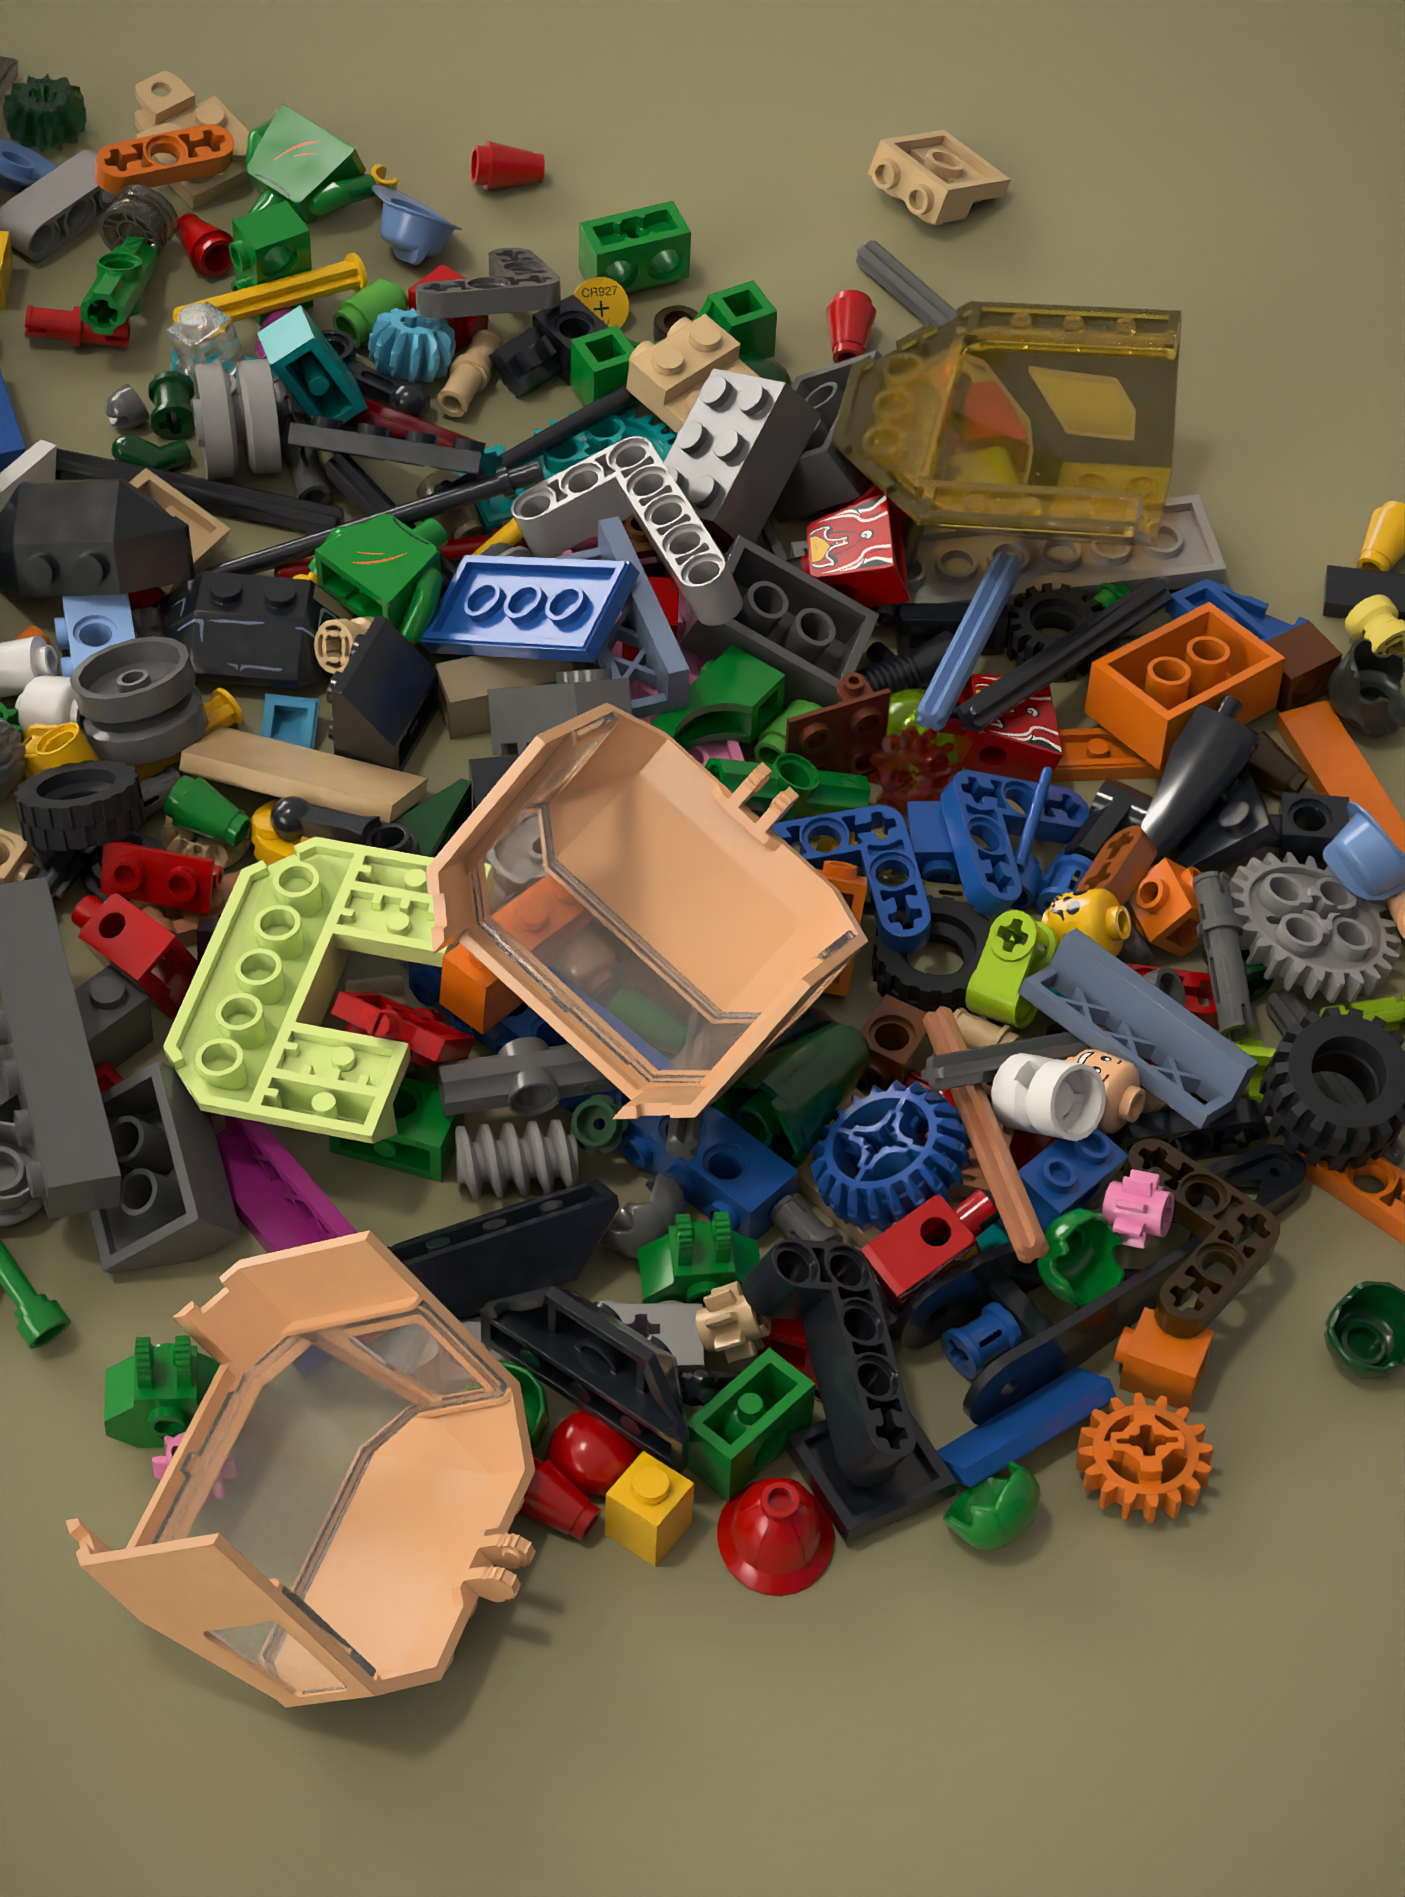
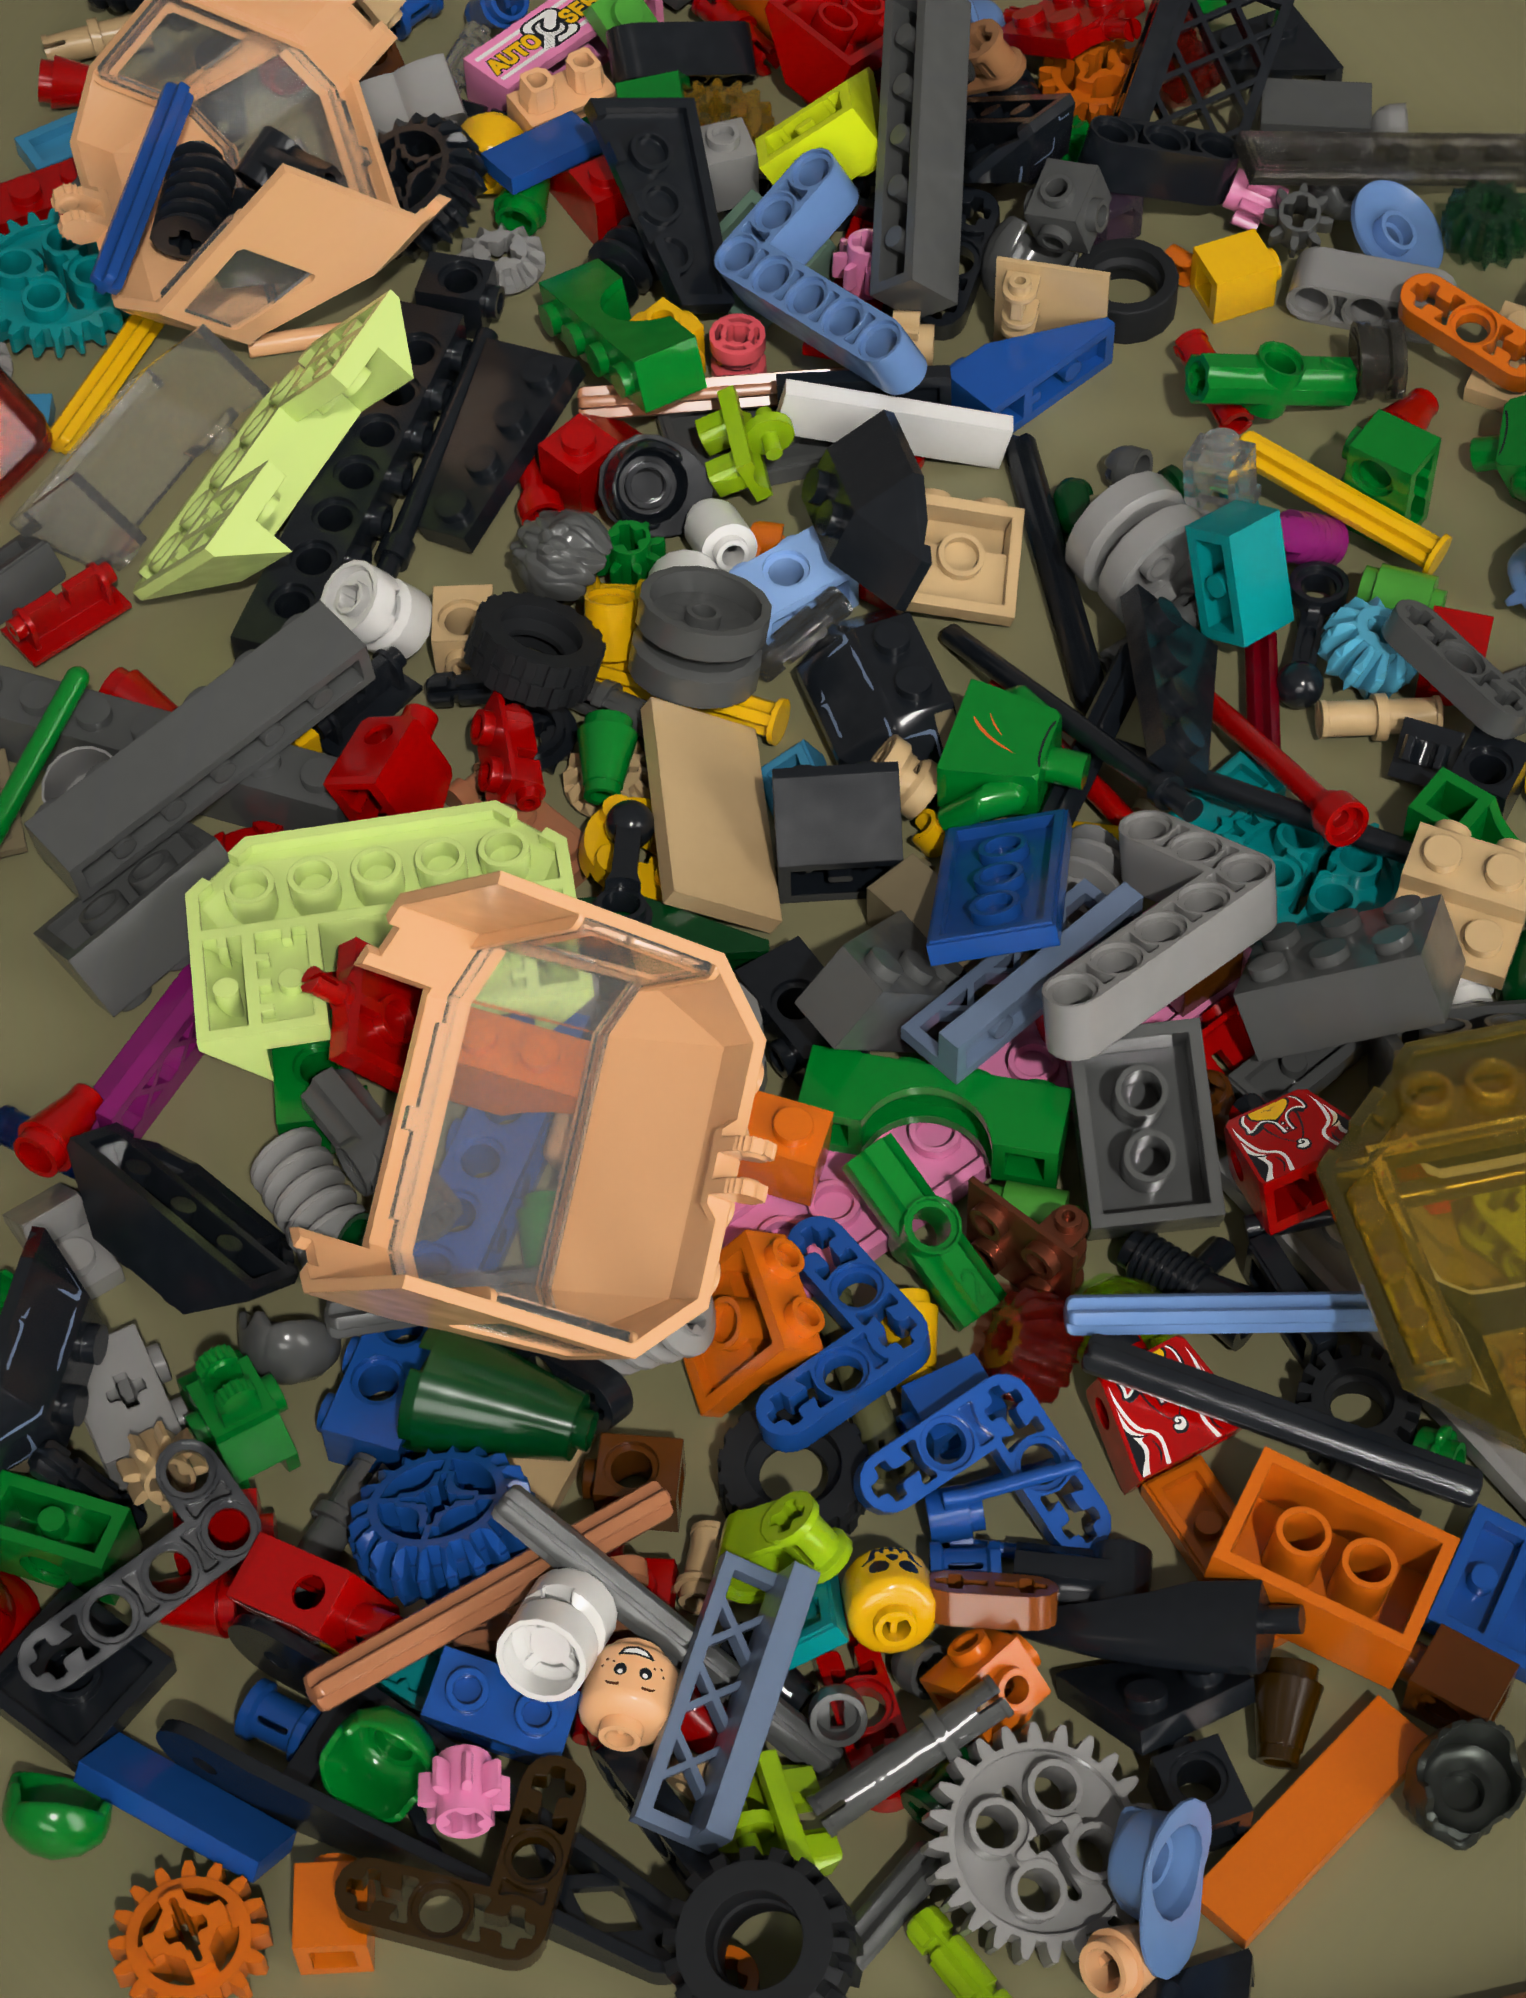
camera: 70 degrees right, 5 degrees up
(579, 409) = (1334, 813): none -> red piece

